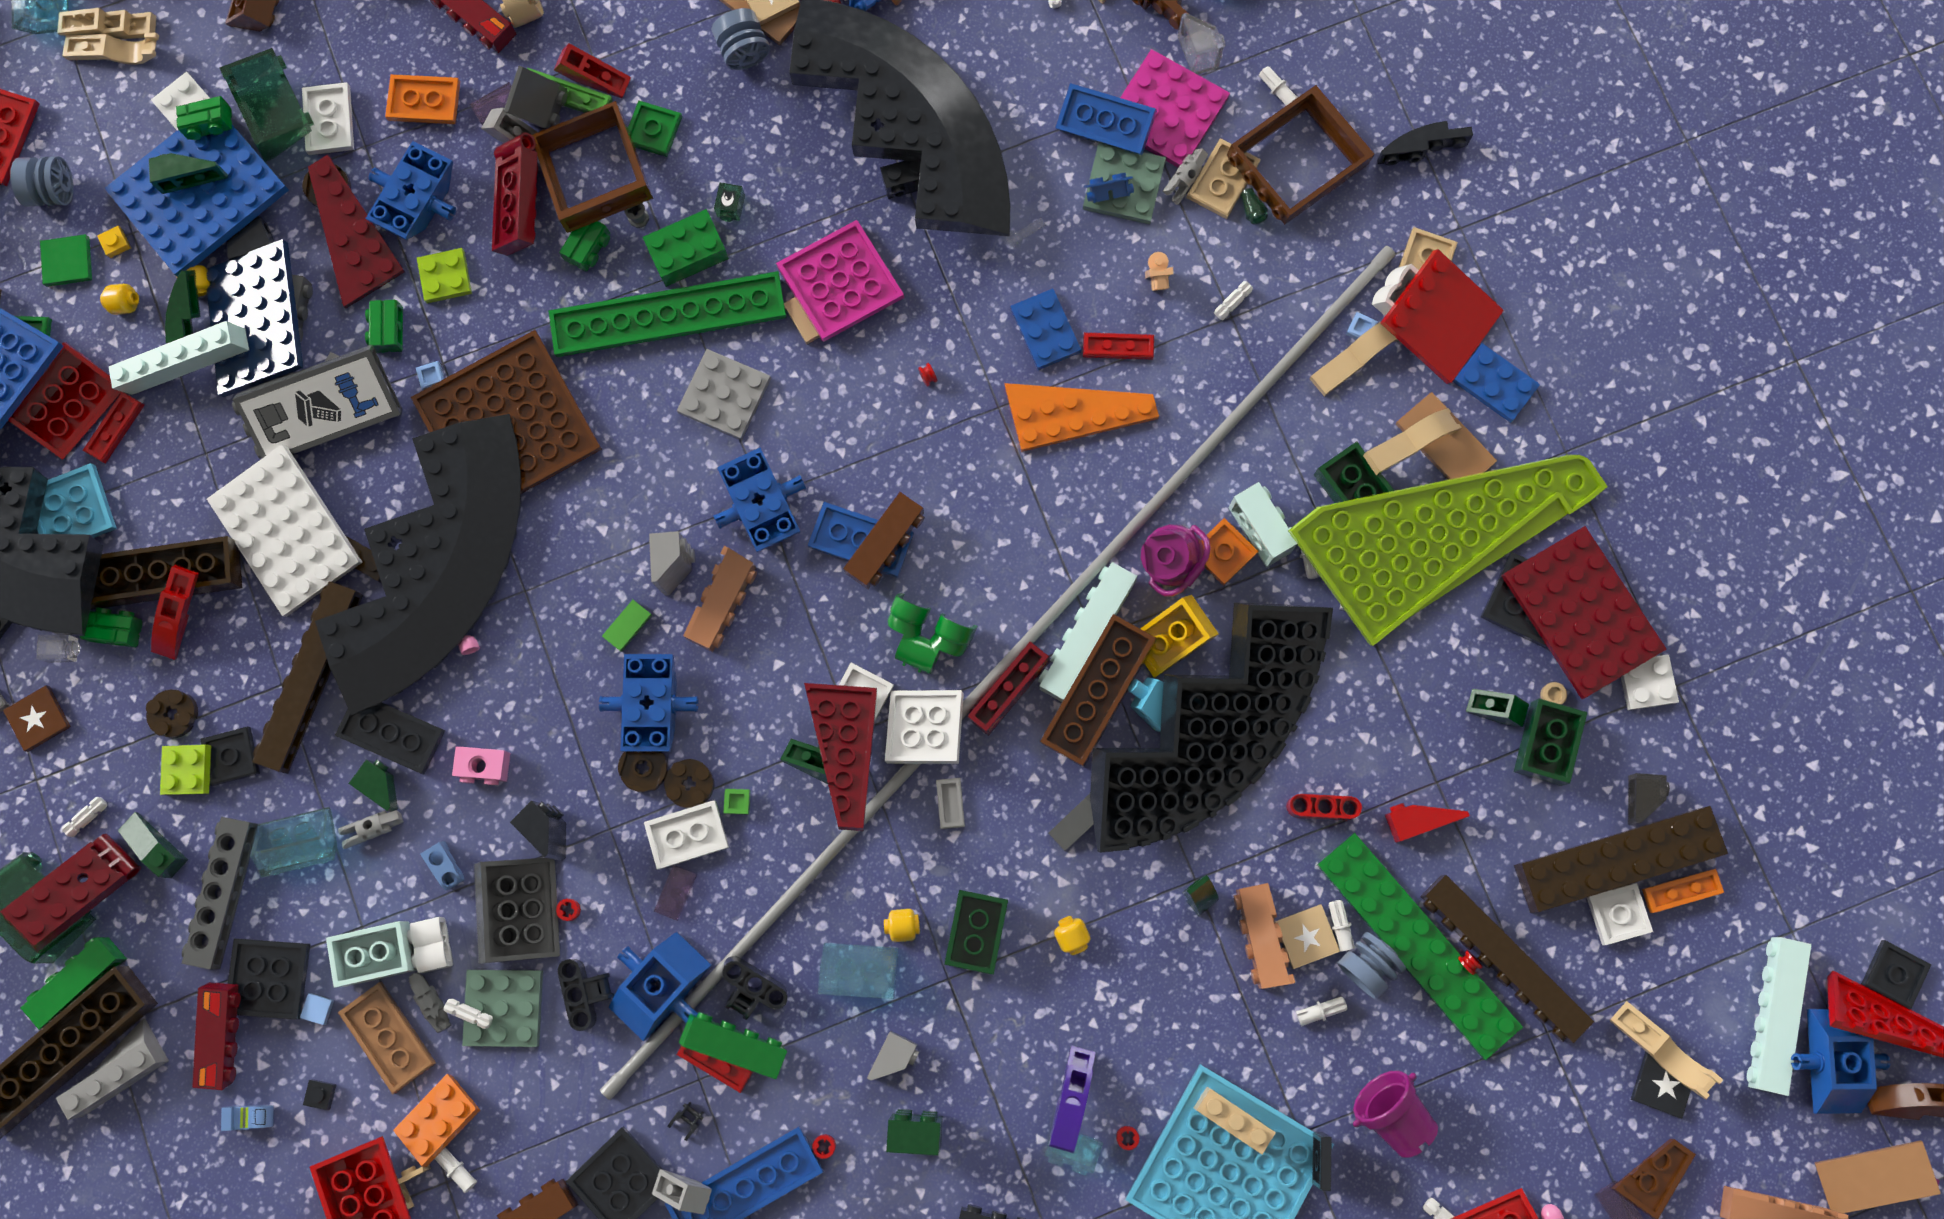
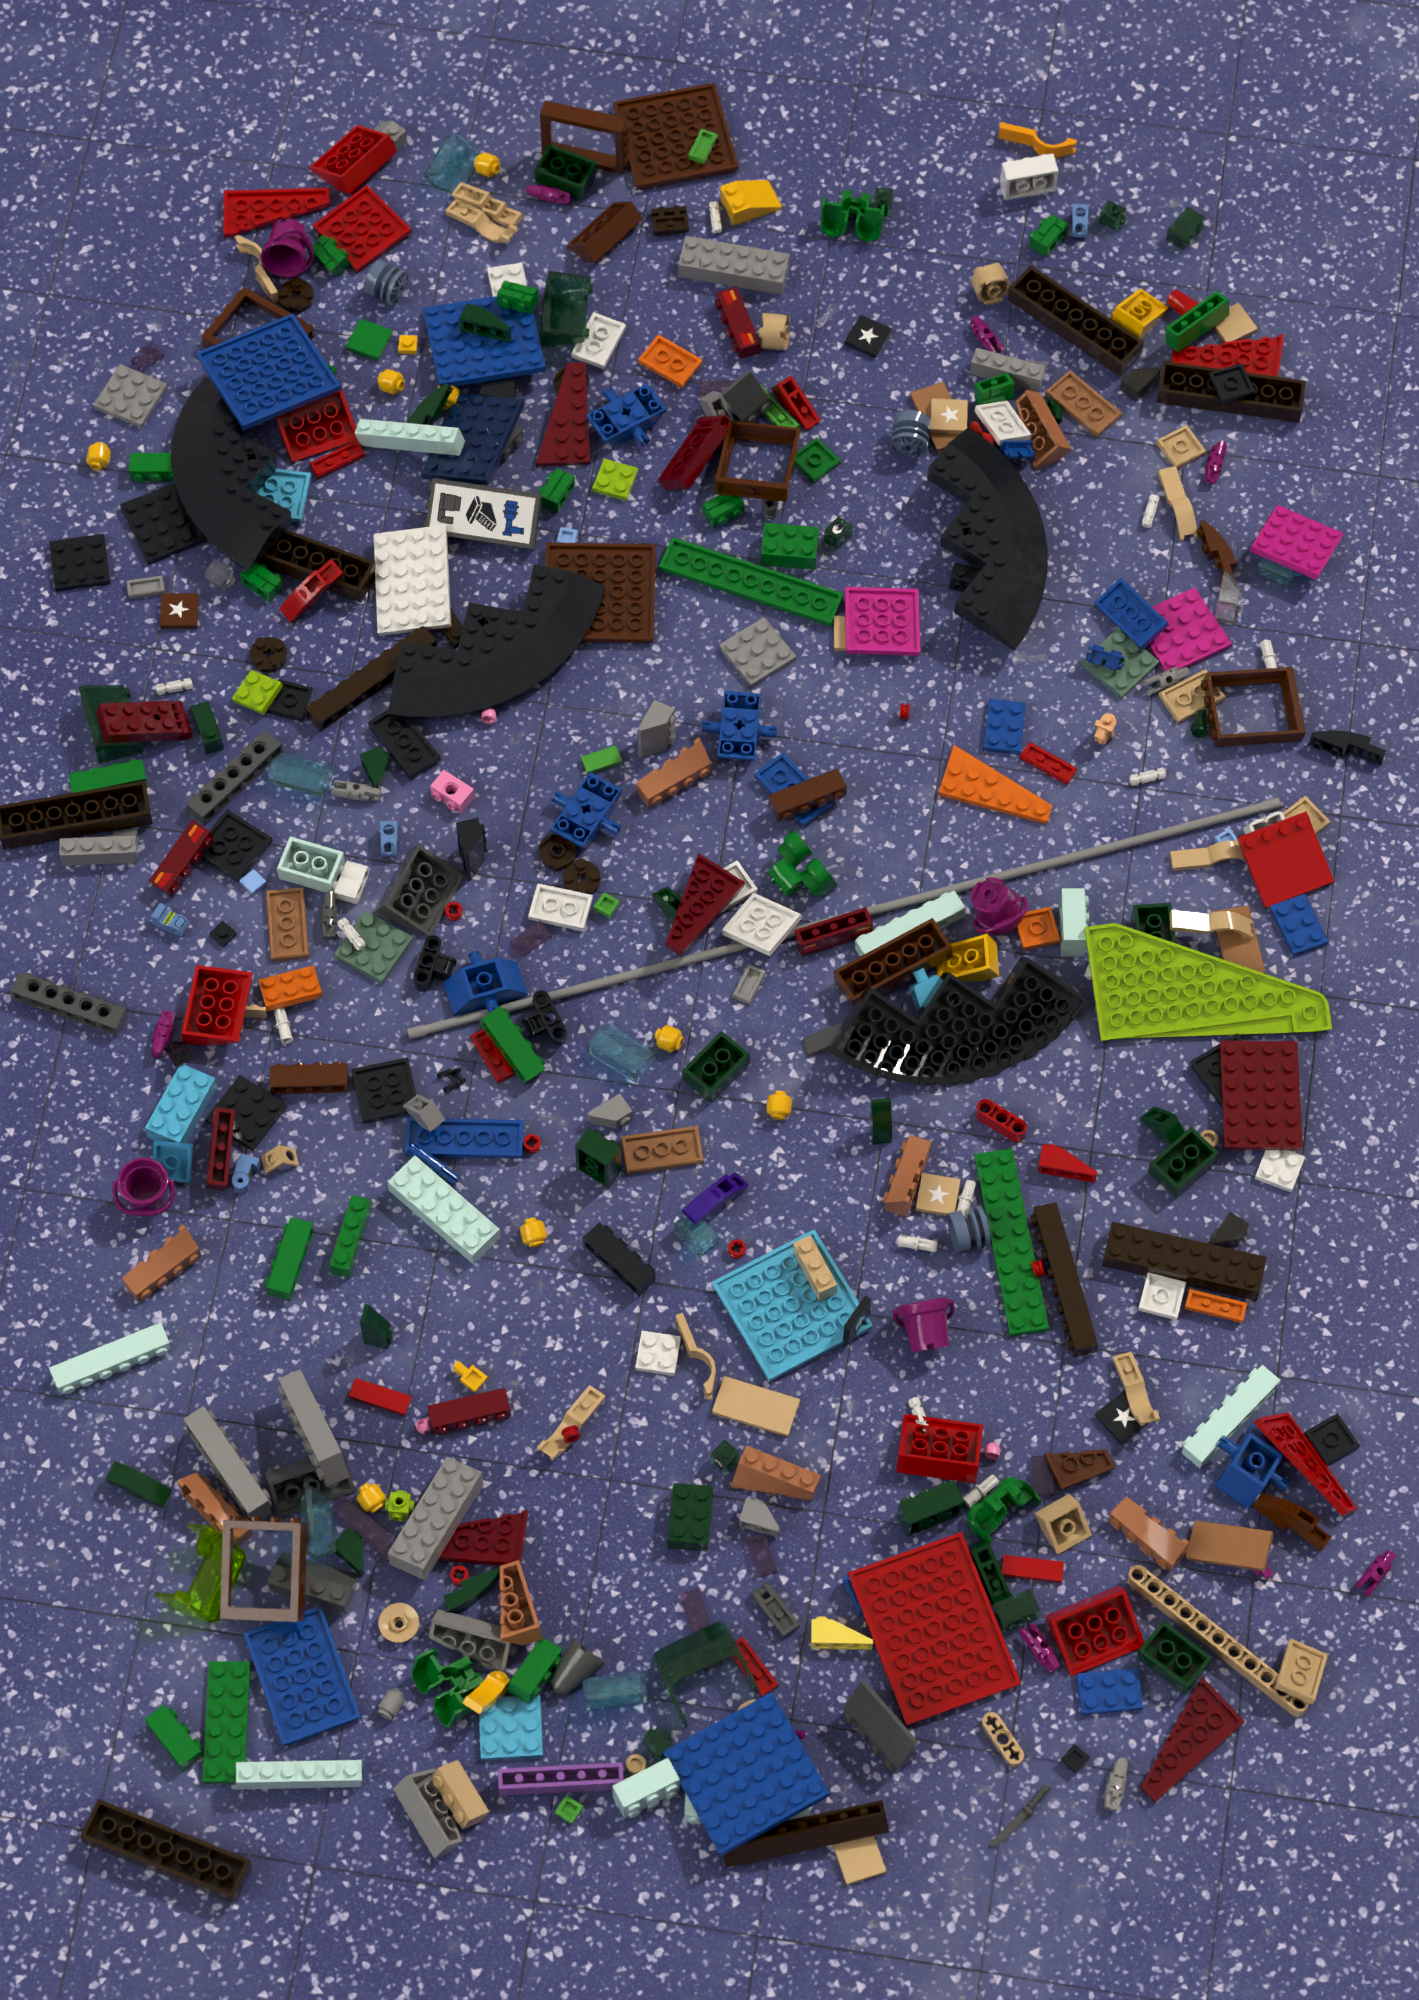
camera: 25 degrees right, 15 degrees down
(973, 1065) = (662, 1150): none -> medium nougat tile

